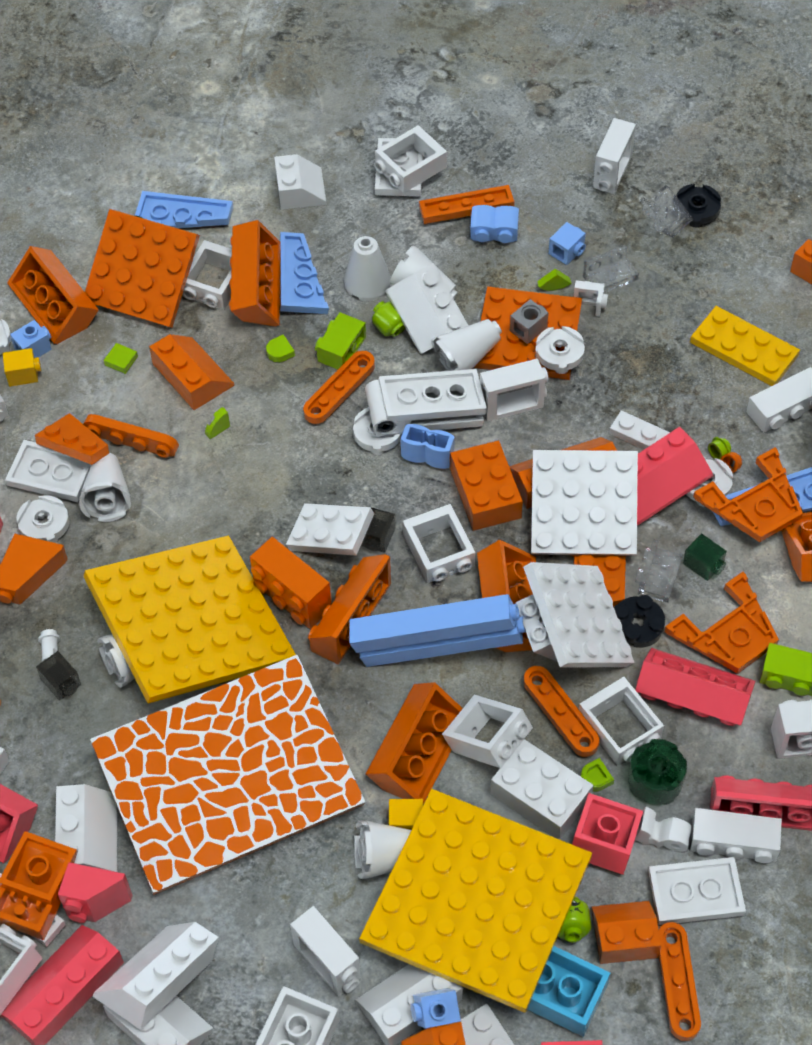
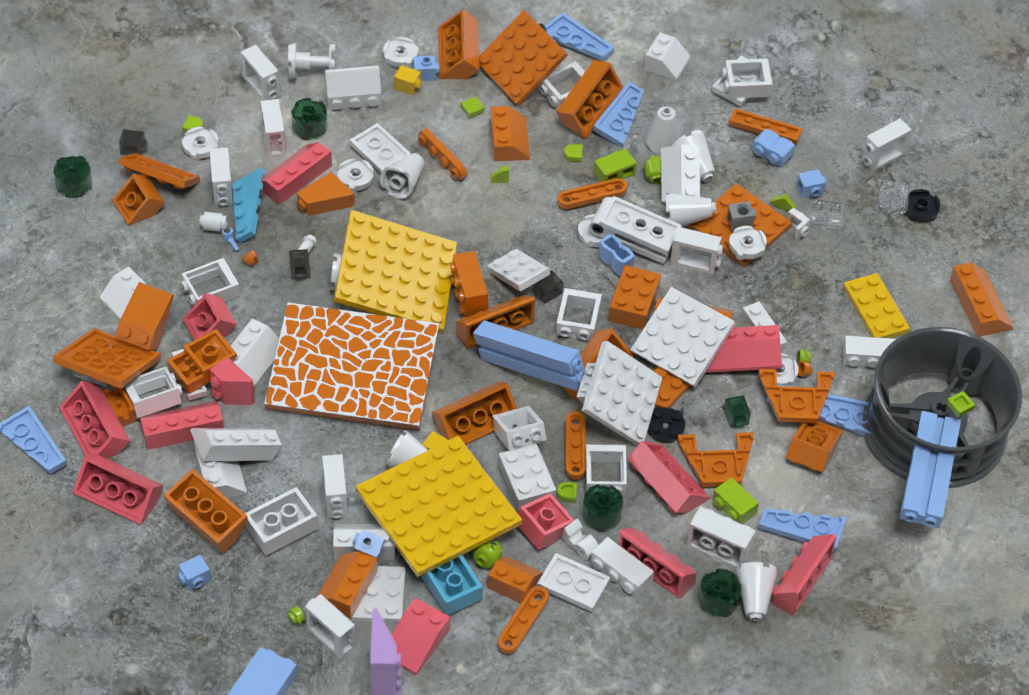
camera: 30 degrees right, 5 degrees down
(73, 439) = (405, 137): orange wing -> none

